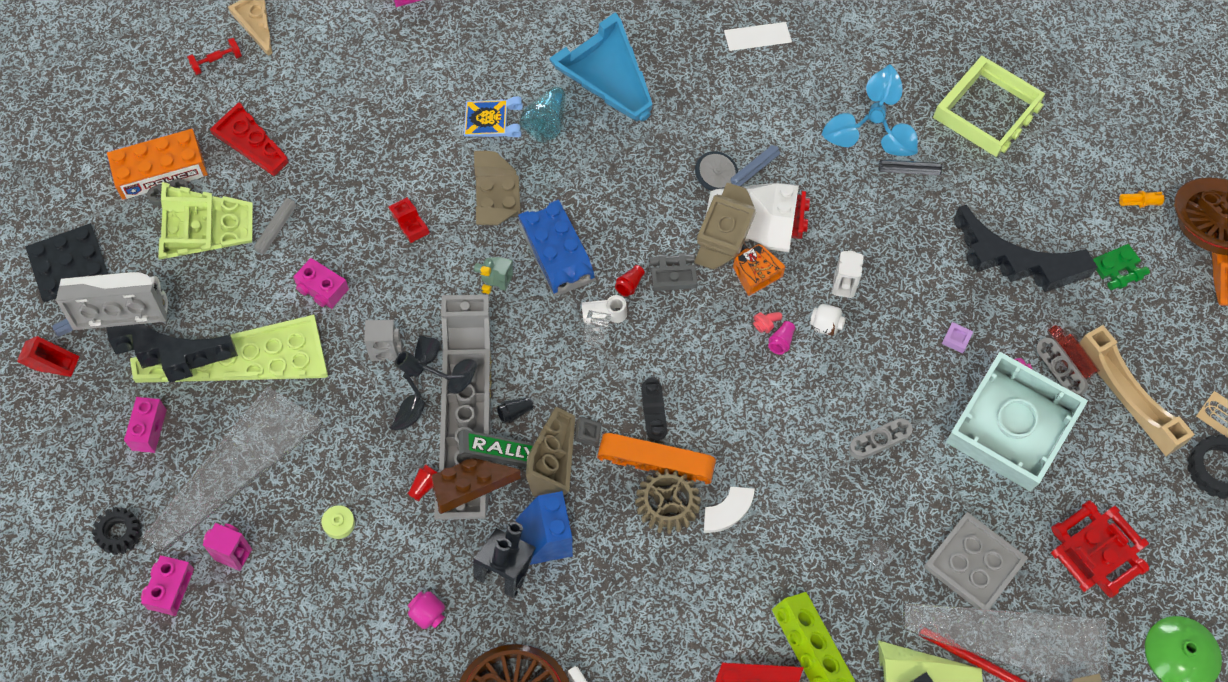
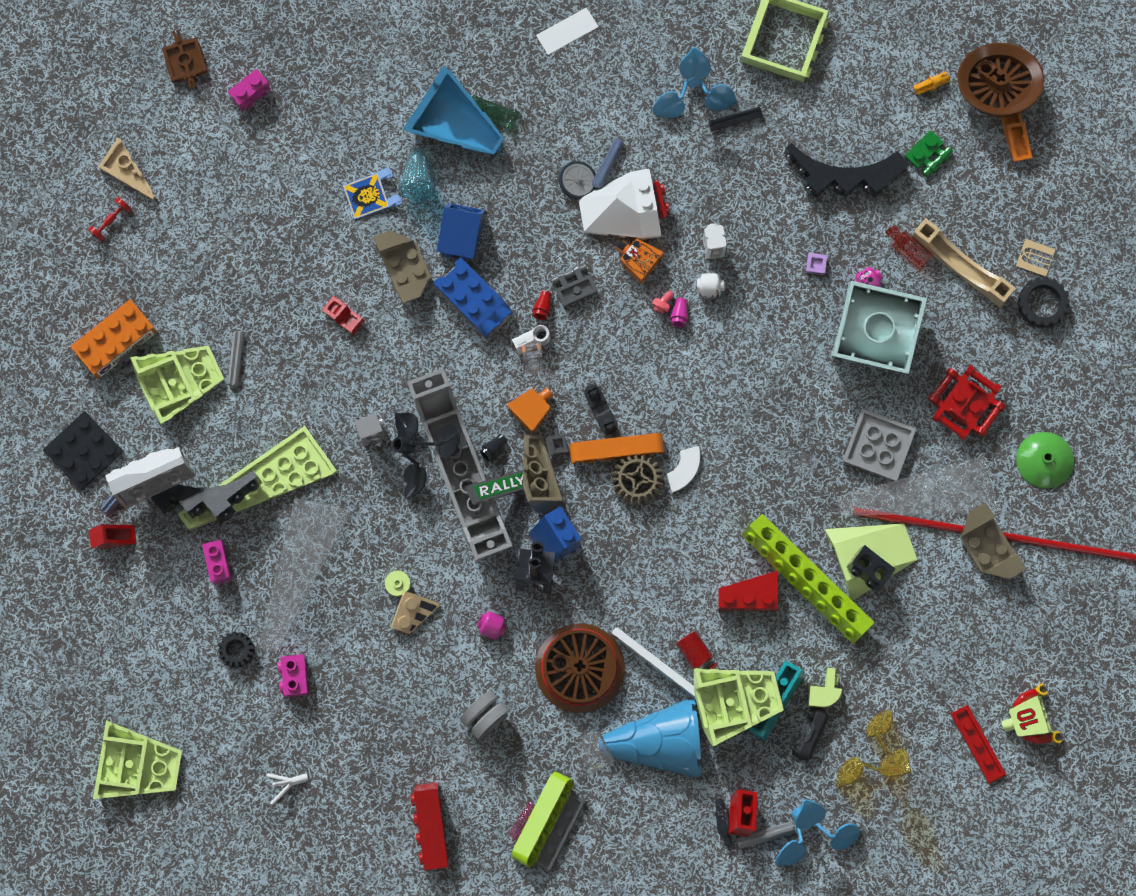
camera: 15 degrees left, 15 degrees up
(227, 545) = (326, 632): dark pink brick -> none
(246, 137) = (175, 287): red wing -> none
(320, 283) = (297, 397): dark pink brick -> none
(340, 560) = (412, 612): none -> tan wing
(422, 483) = (448, 530): red cone -> none
(469, 481) = (489, 523): reddish brown wing -> none
(495, 272) = (432, 337): sand green piece -> none
(569, 177) = (460, 231): none -> blue slope
(574, 381) = (531, 408): none -> orange torso
(656, 85) = (497, 113): none -> clear green plate
(725, 227) = (604, 233): dark tan piece -> none
(883, 430) = (780, 363): light grey beam -> none
(1071, 366) = (911, 260): light grey beam -> none

